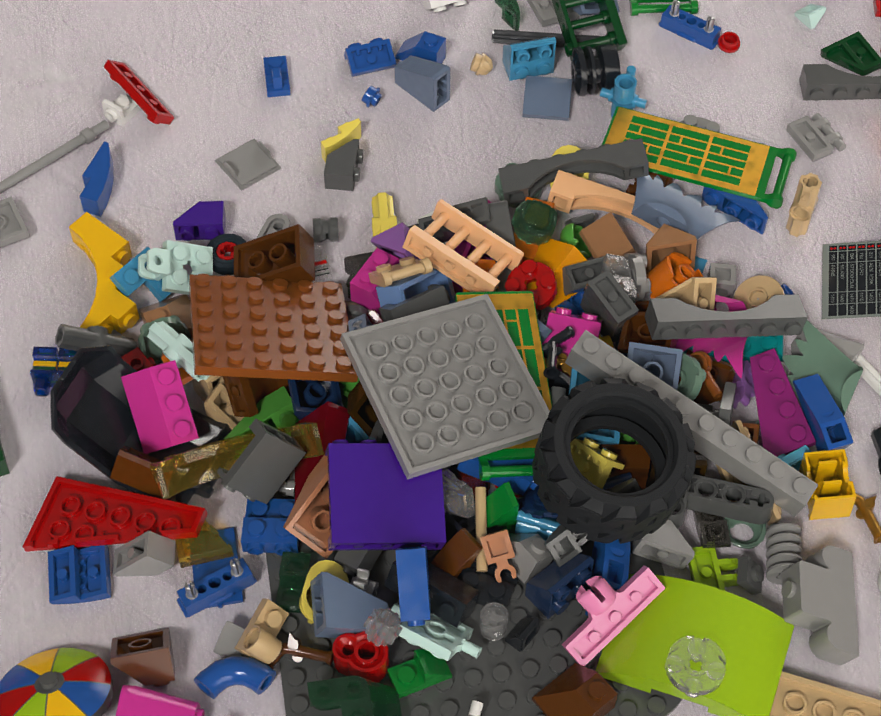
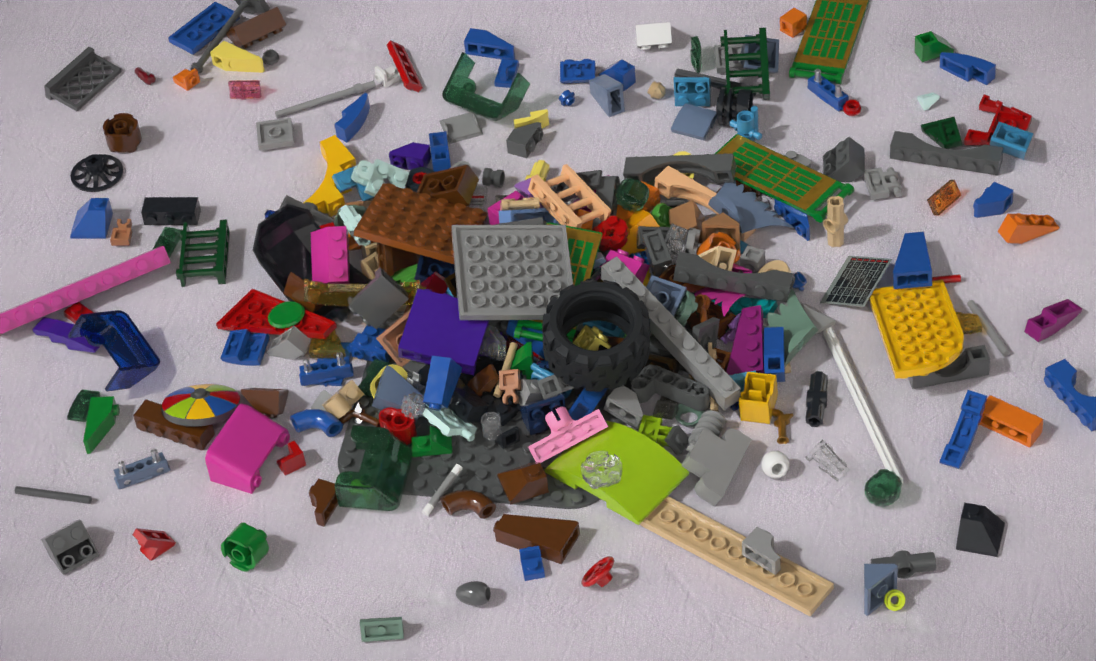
camera: 25 degrees right, 10 degrees down
(126, 511) = (286, 314): none -> green piece
(231, 119) = (461, 93): none -> clear green windscreen
(235, 41) = (486, 44): none -> blue slope
(237, 206) = (439, 151): none -> blue slope
(758, 117) = (845, 161): none -> dark grey slope

